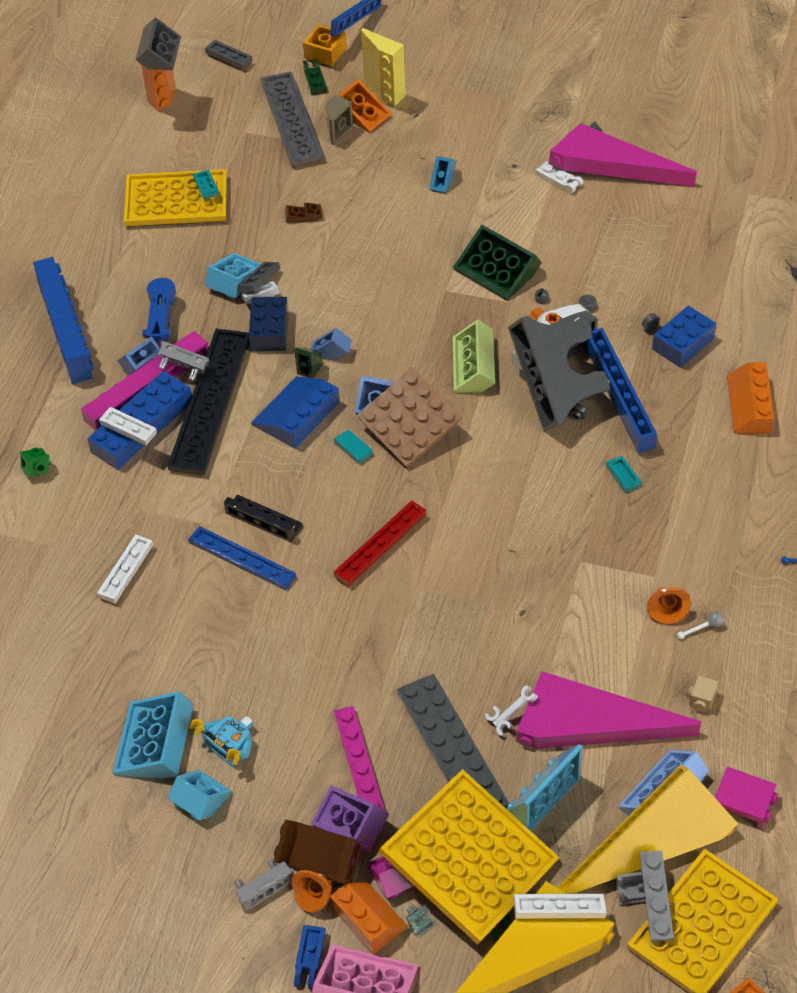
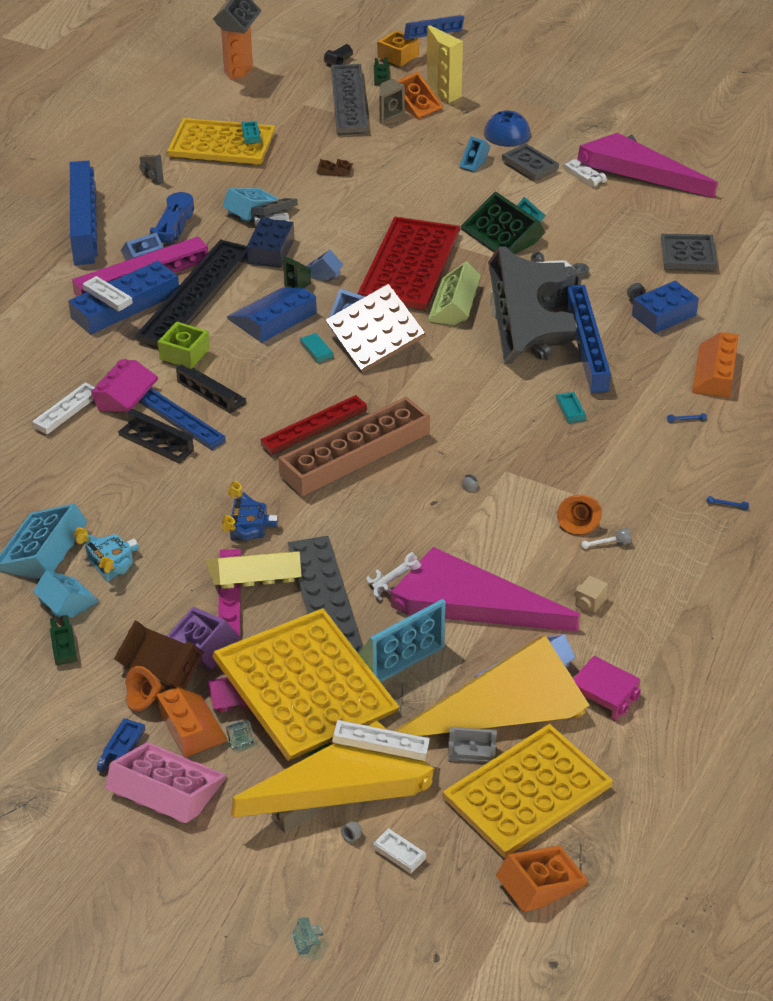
camera: 10 degrees right, 10 degrees down
(34, 462) = (15, 313): green brick -> none
(115, 246) = (152, 167): none -> dark grey wing
(177, 534) = (123, 386): none -> dark pink slope
(183, 358) = (178, 252): light grey piece -> none
(214, 848) = (63, 642): none -> dark green hinge
(221, 471) = (184, 345): none -> lime brick
(228, 54) = (308, 45): dark grey plate -> none
(231, 583) = (161, 434): none -> black fence
(262, 65) = (338, 56): none -> black piece
(264, 886) = (98, 680): light grey piece -> none
(350, 667) = (247, 517): none -> blue torso
(376, 729) = (254, 568): none -> light yellow slope
(416, 322) = (411, 260): none -> red plate
(429, 564) = (354, 446): none -> nougat brick
(466, 134) = (507, 129): none -> blue piece
(501, 172) = (530, 161): none -> dark grey plate
(519, 237) = (530, 208): none -> teal plate
(552, 584) = (470, 483): none -> light grey hinge
(656, 896) = (484, 752): light grey plate -> none
(688, 261) = (688, 252): none -> dark grey plate
(723, 469) = (671, 418): none -> blue hinge

